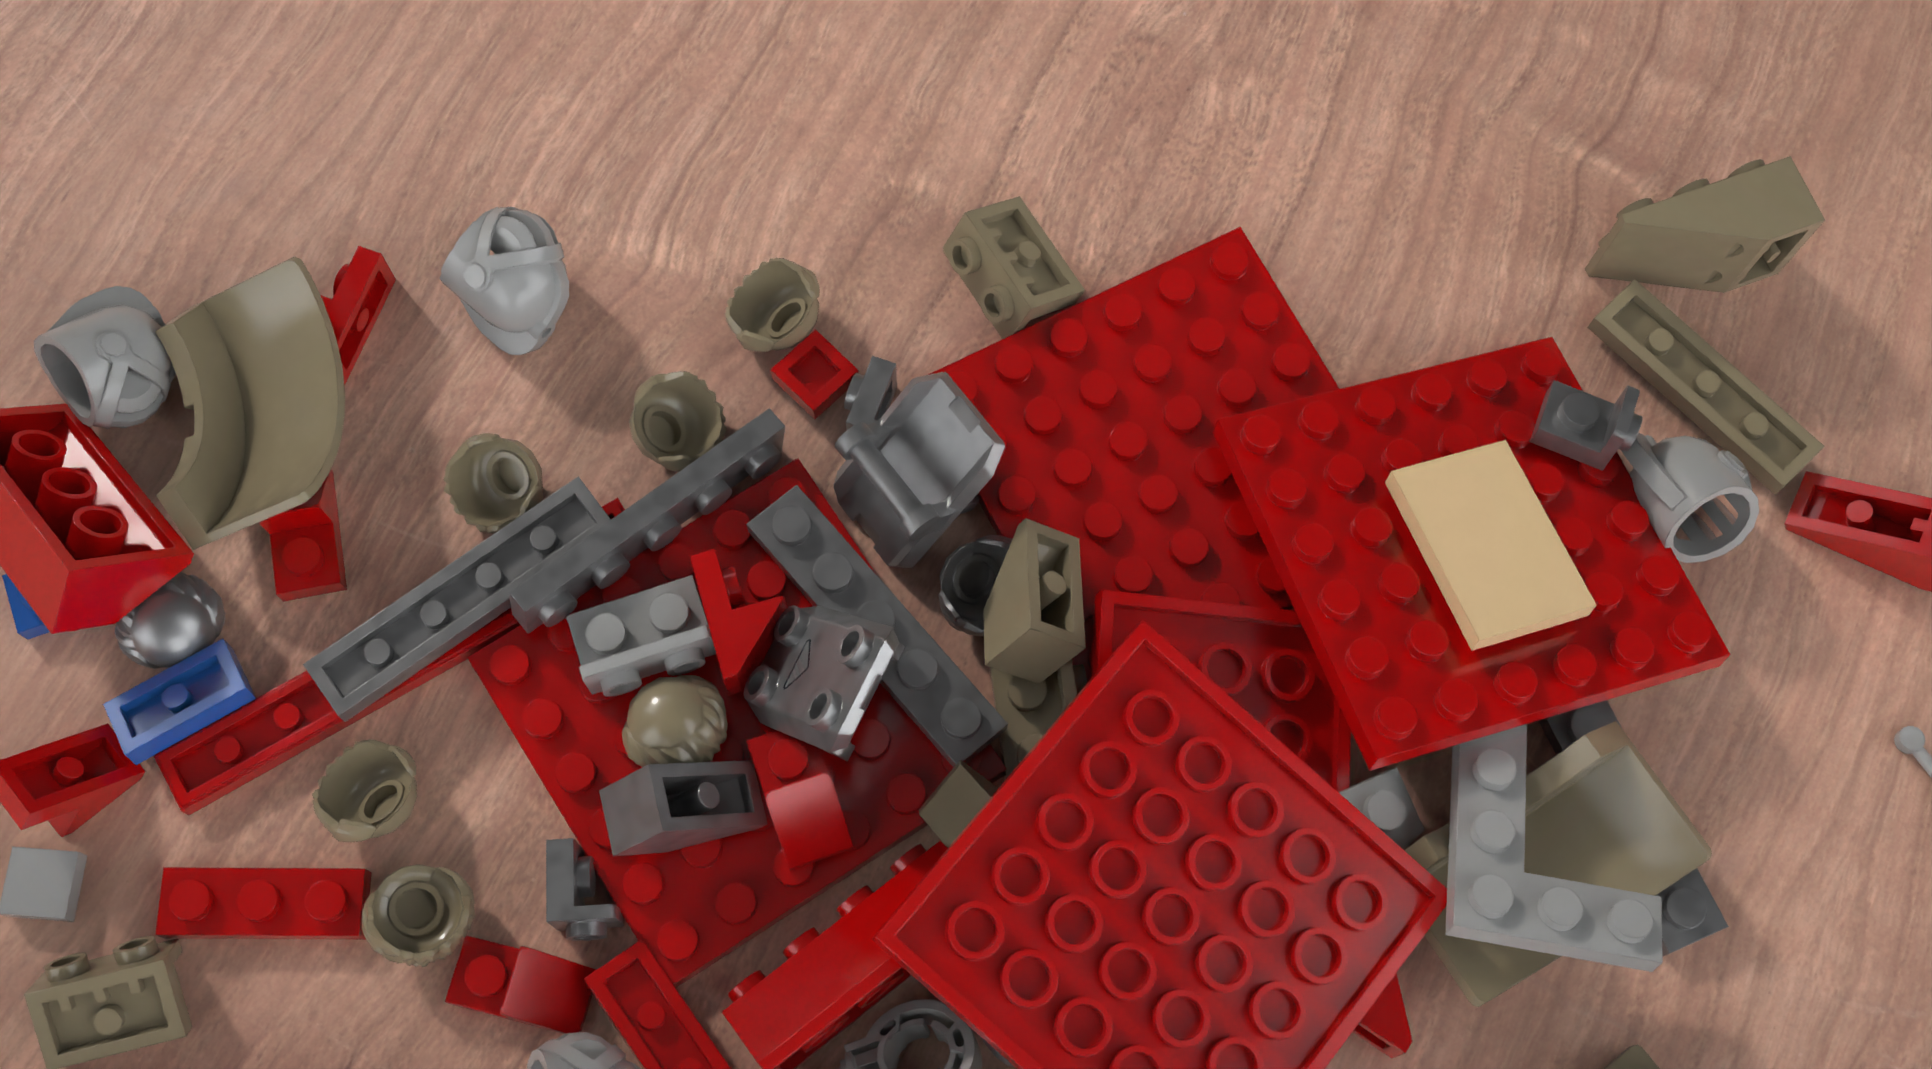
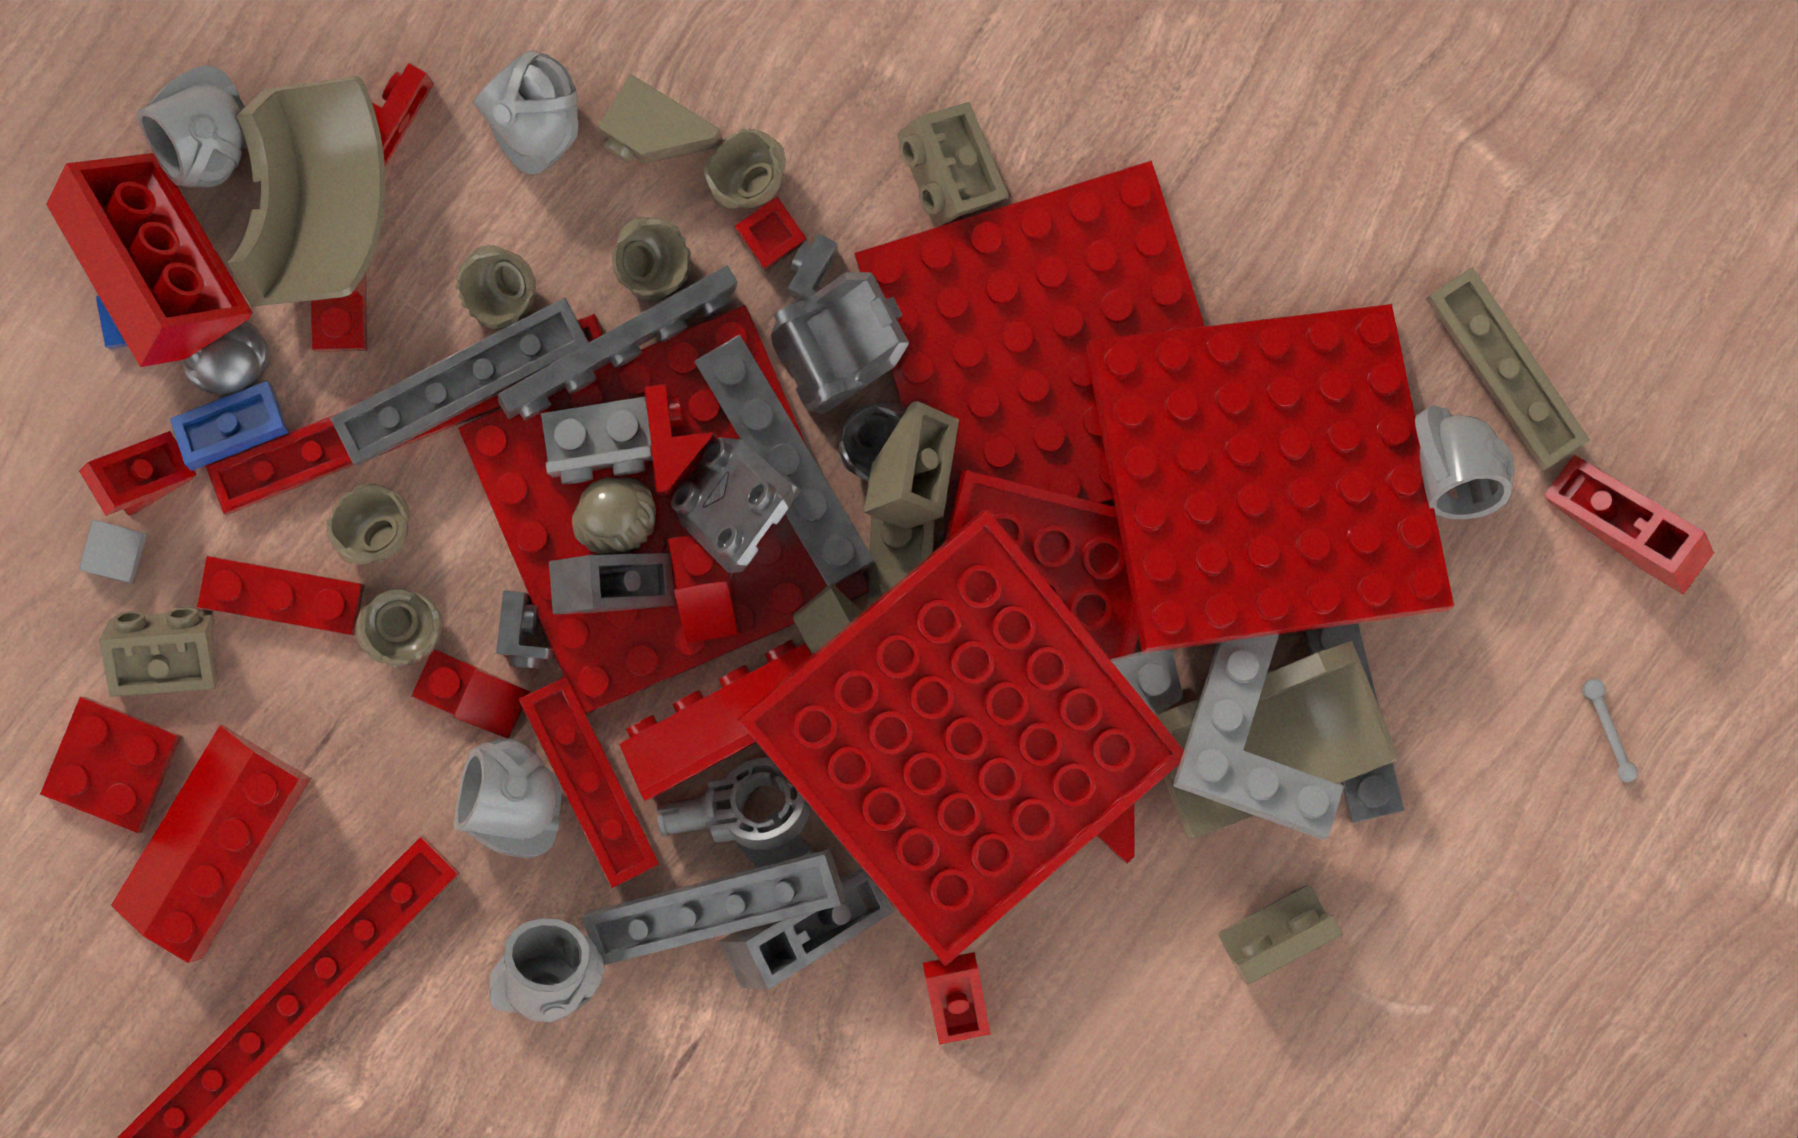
camera: 10 degrees right, 15 degrees up
(660, 276) = (653, 126): none -> dark tan slope
(1489, 544) = (1280, 487): tan tile -> none
(1586, 425) = (1389, 395): flat silver bracket -> none
(1713, 232) = (1544, 243): dark tan slope -> none

